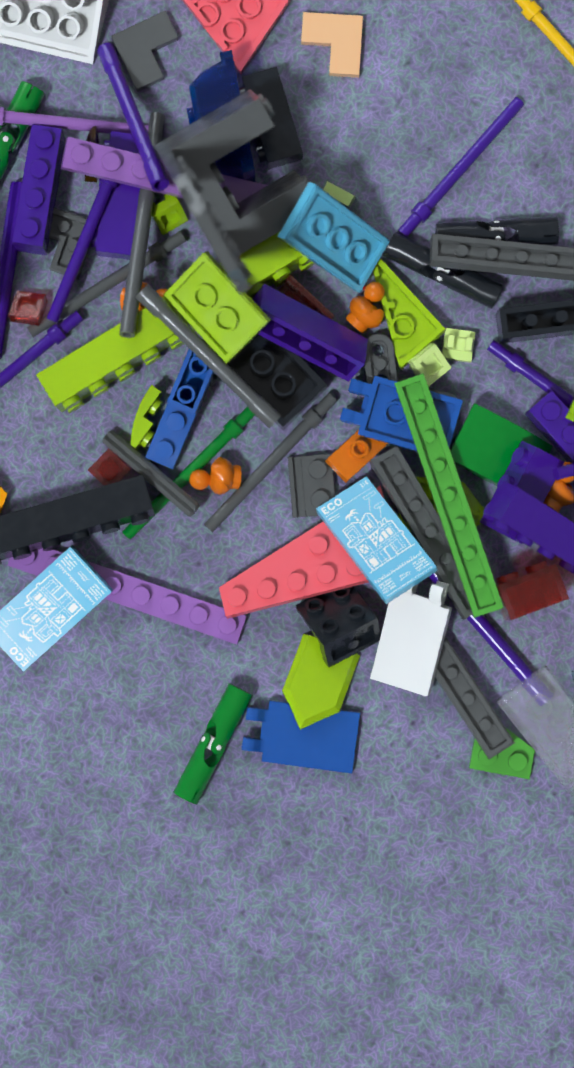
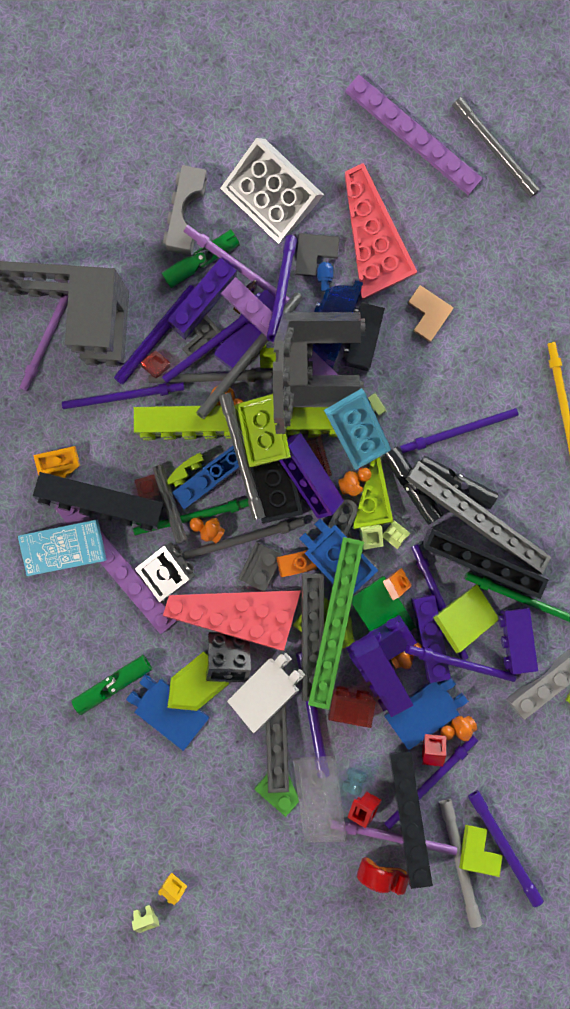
camera: 30 degrees right, 0 degrees up
(175, 69) = (325, 275): none -> blue cylinder
(196, 560) = (166, 571): none -> plate
(376, 540) = (278, 623): medium azure tile -> none
(431, 1015) = (146, 922): none -> yellowish green tile
(440, 953) = (172, 889): none -> yellow tile
(496, 403) = (397, 583): none -> orange plate

